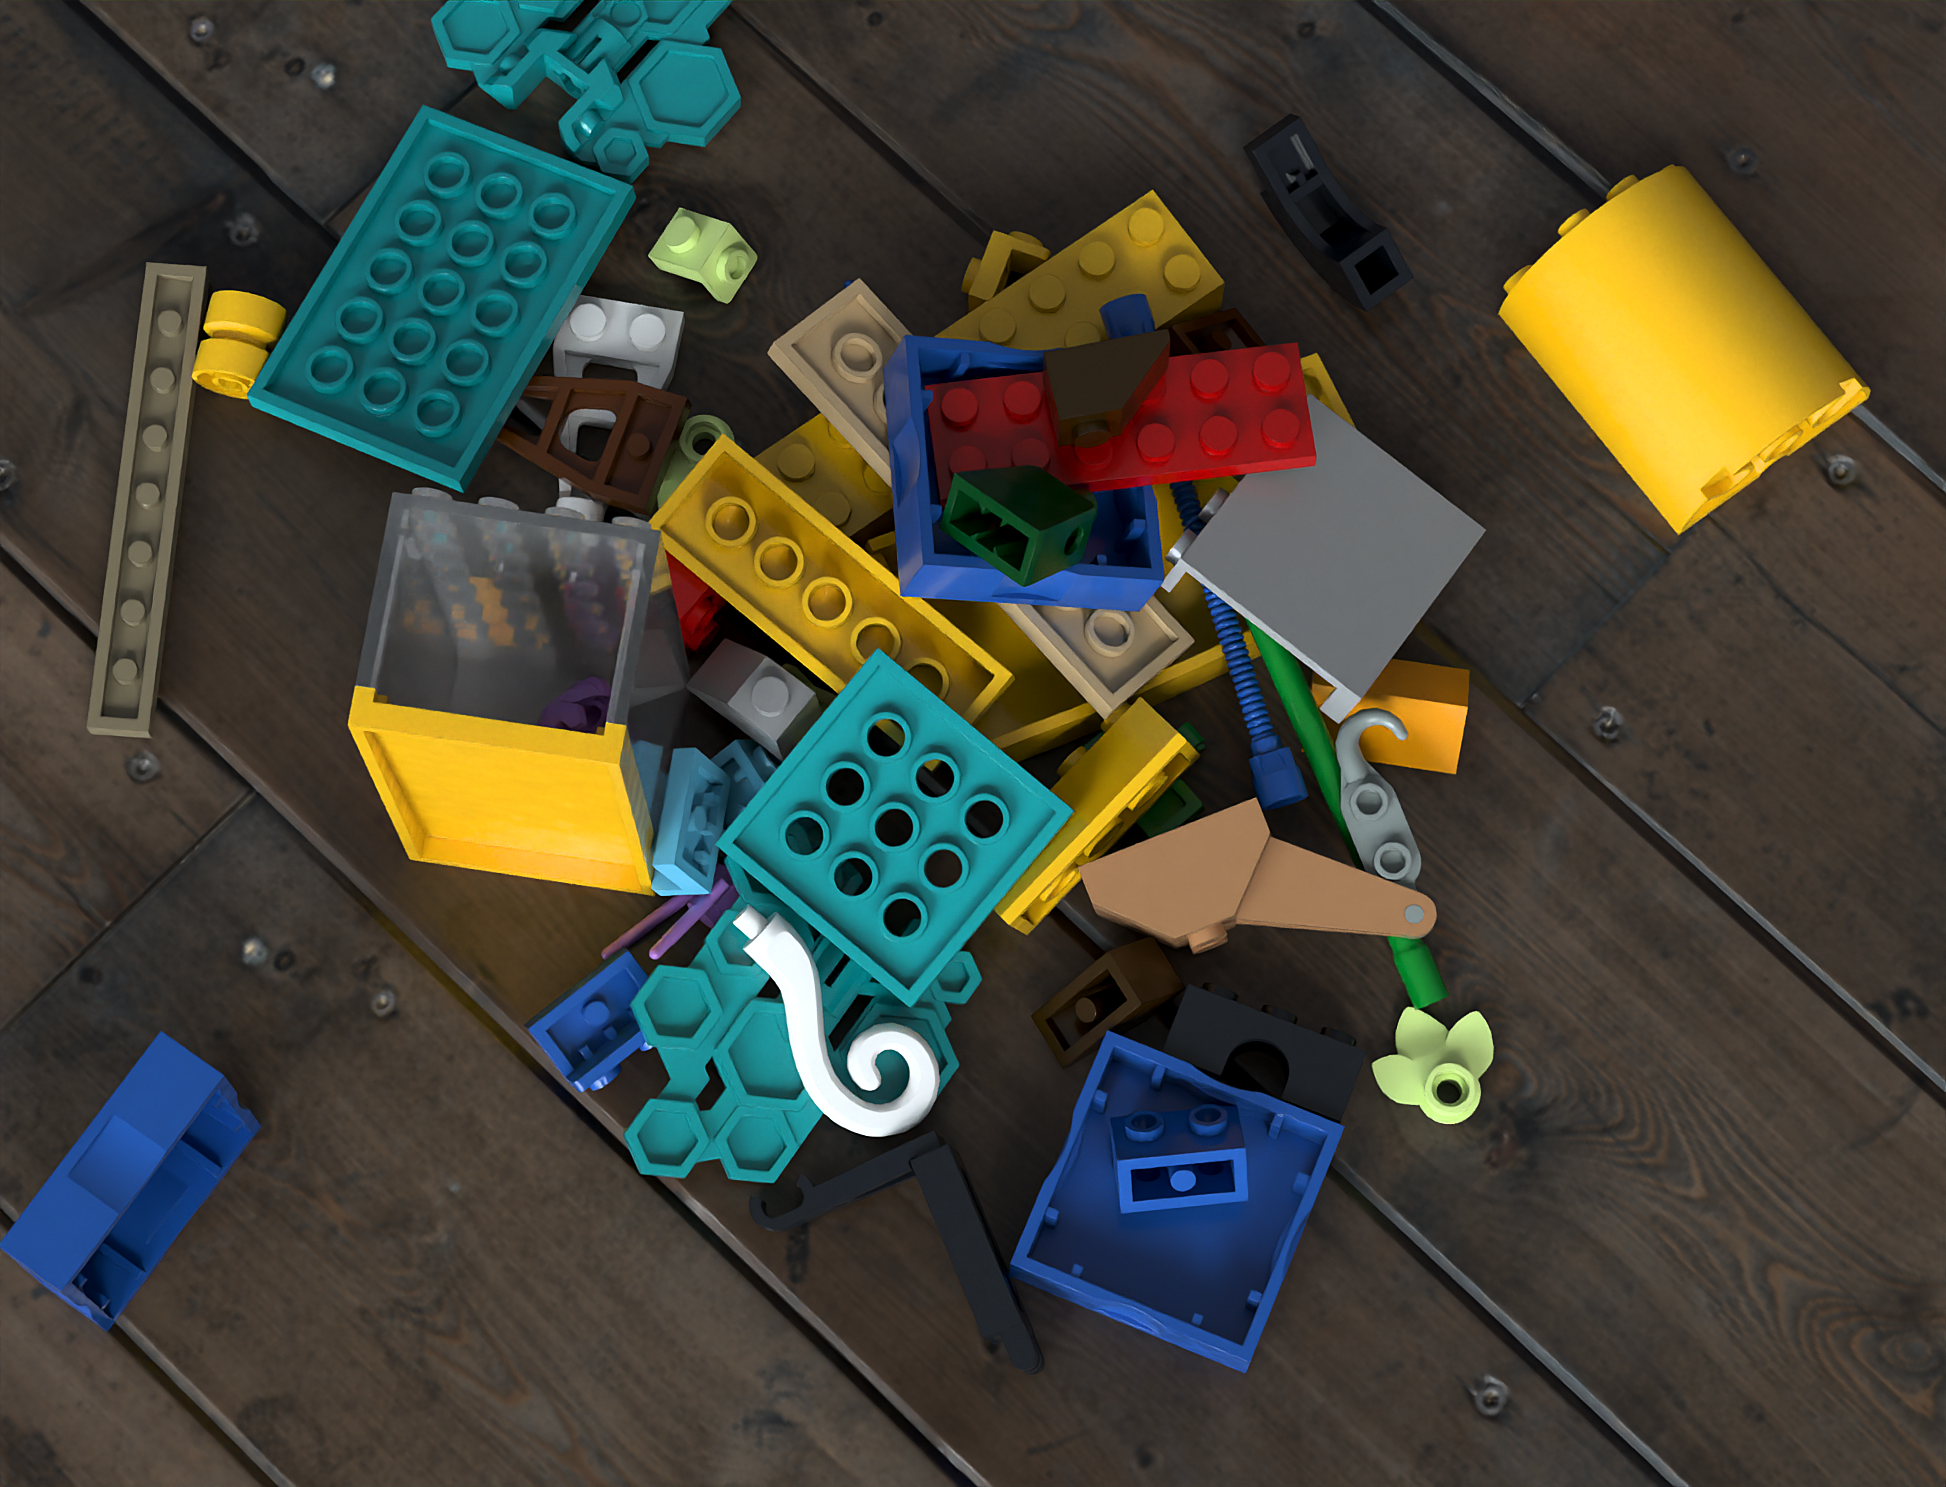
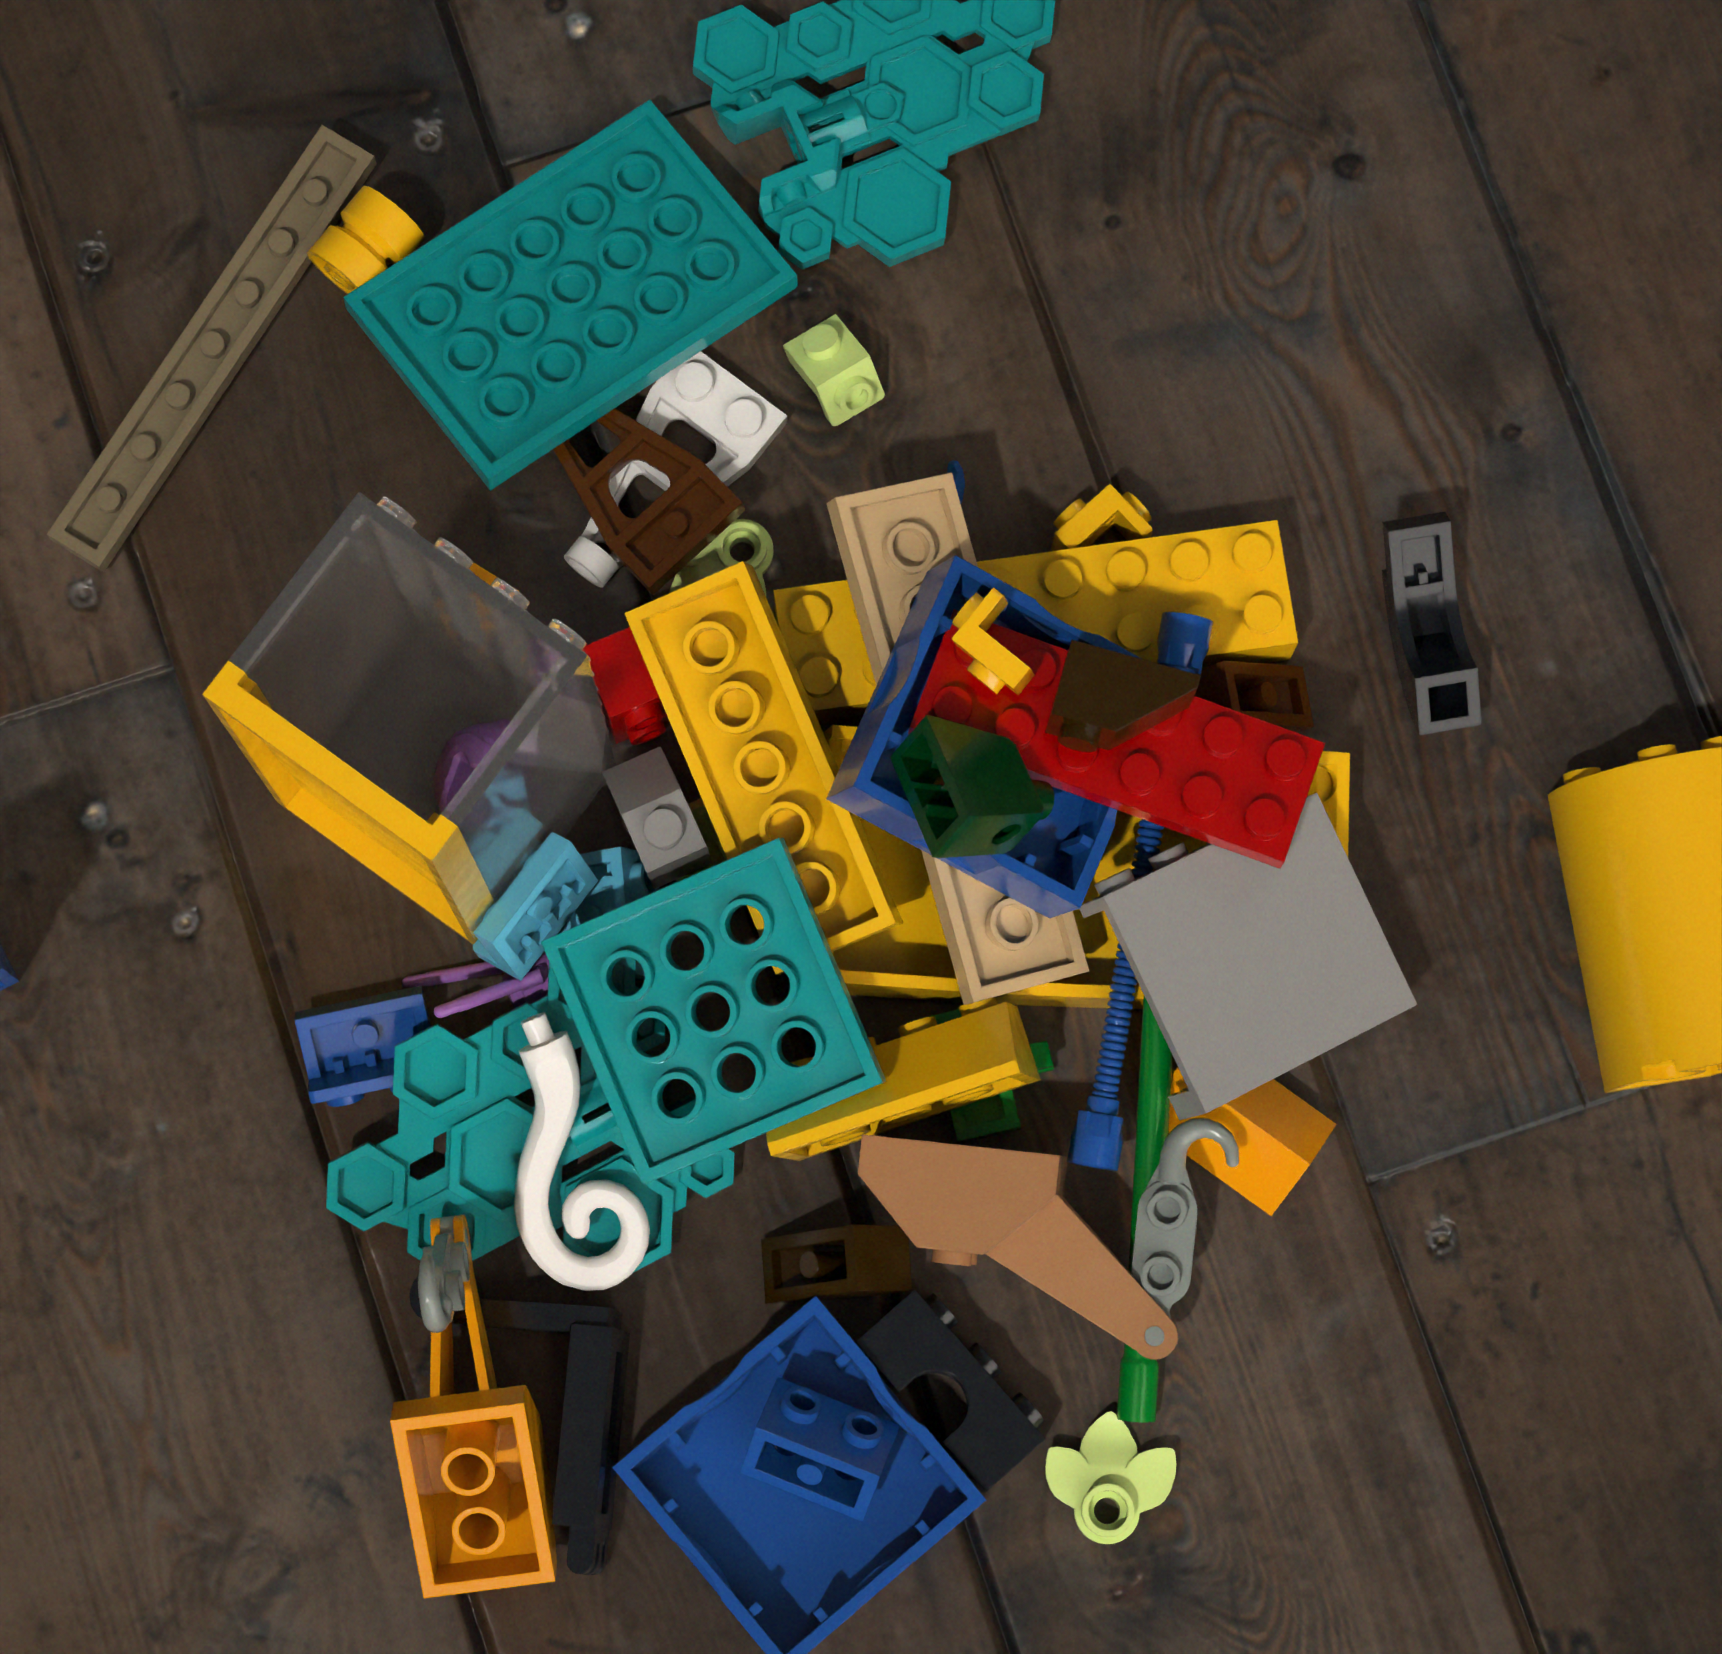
camera: 25 degrees right, 5 degrees up
(883, 1315) = (471, 1459): none -> light orange slope
(984, 405) = (992, 661): none -> yellow bracket

